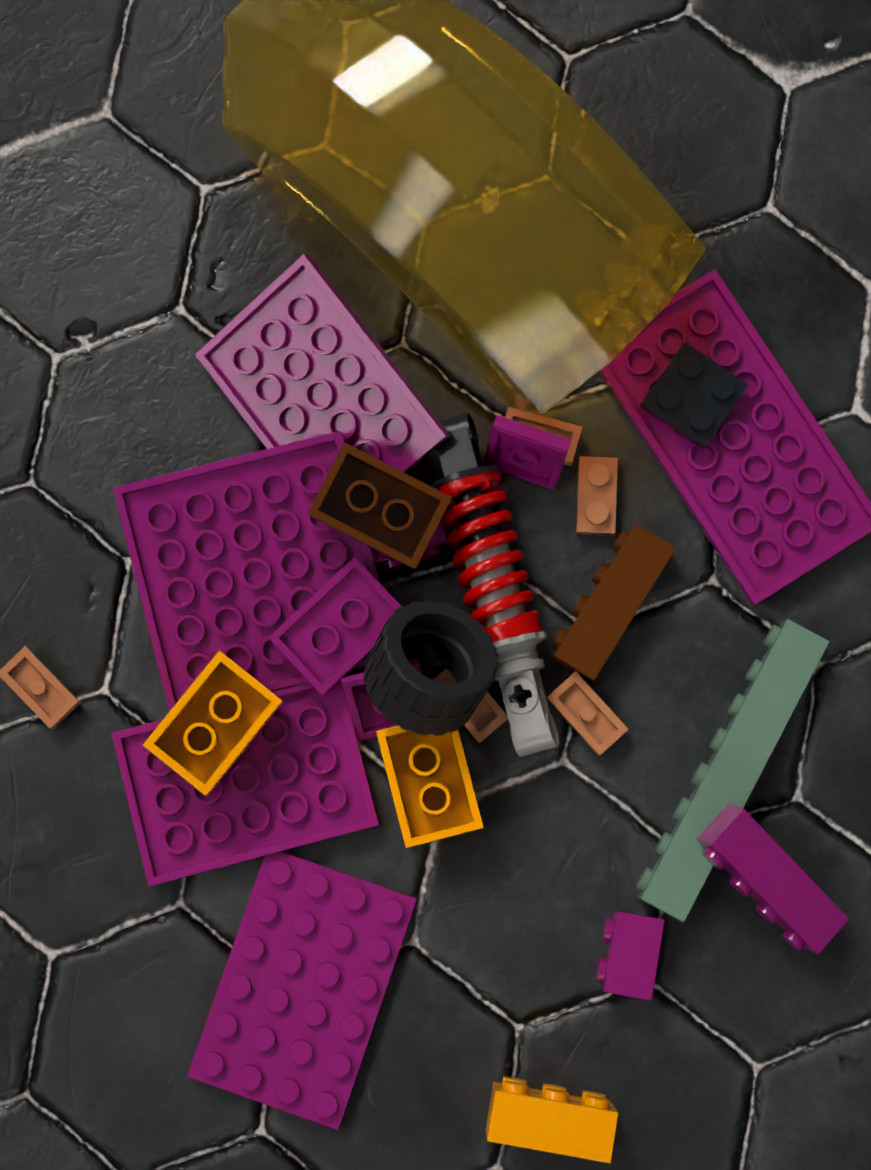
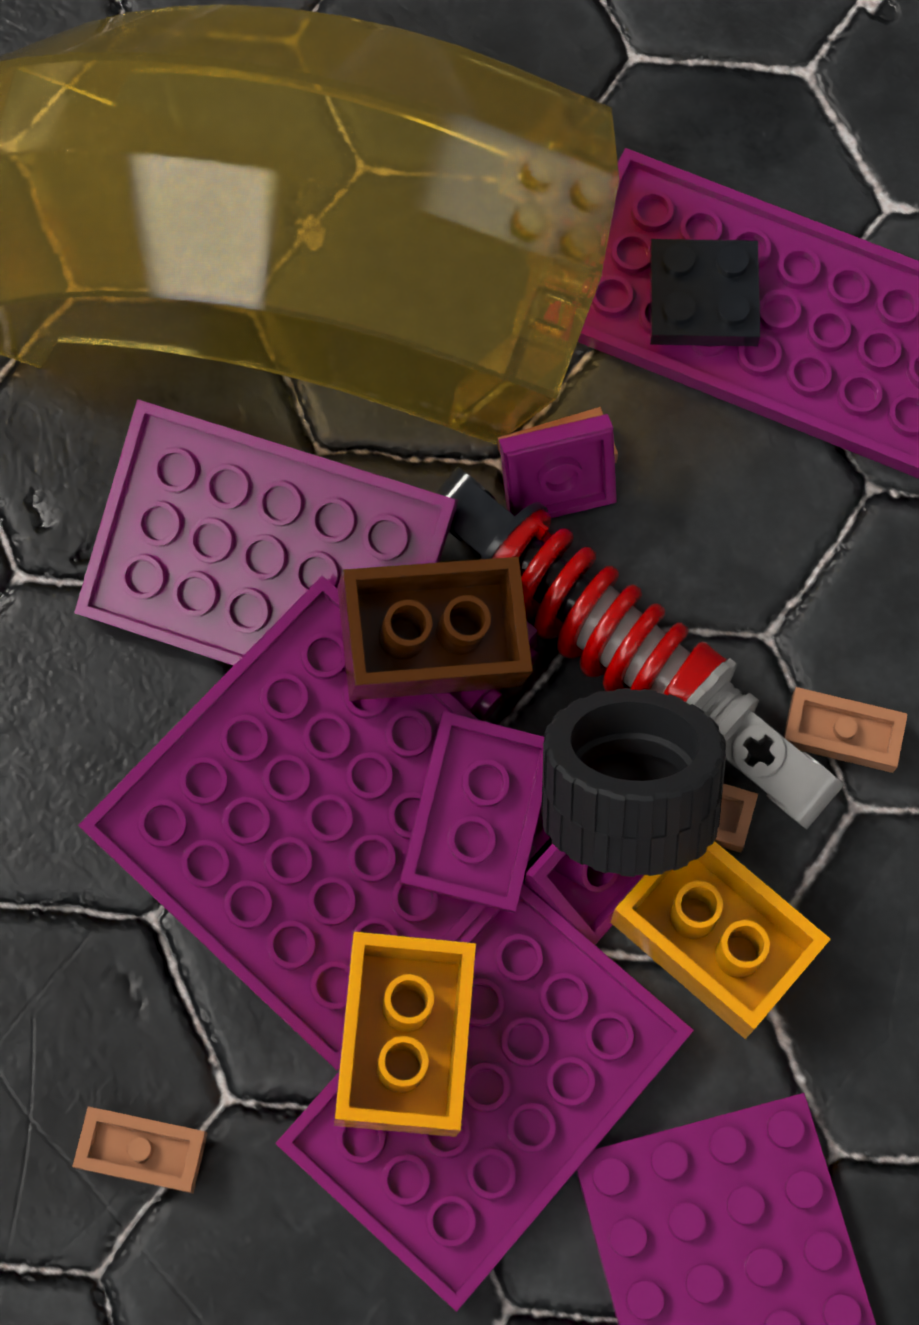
camera: 35 degrees left, 10 degrees down
(596, 496) = (670, 477): nougat plate -> none
(613, 603) = (780, 581): reddish brown brick -> none

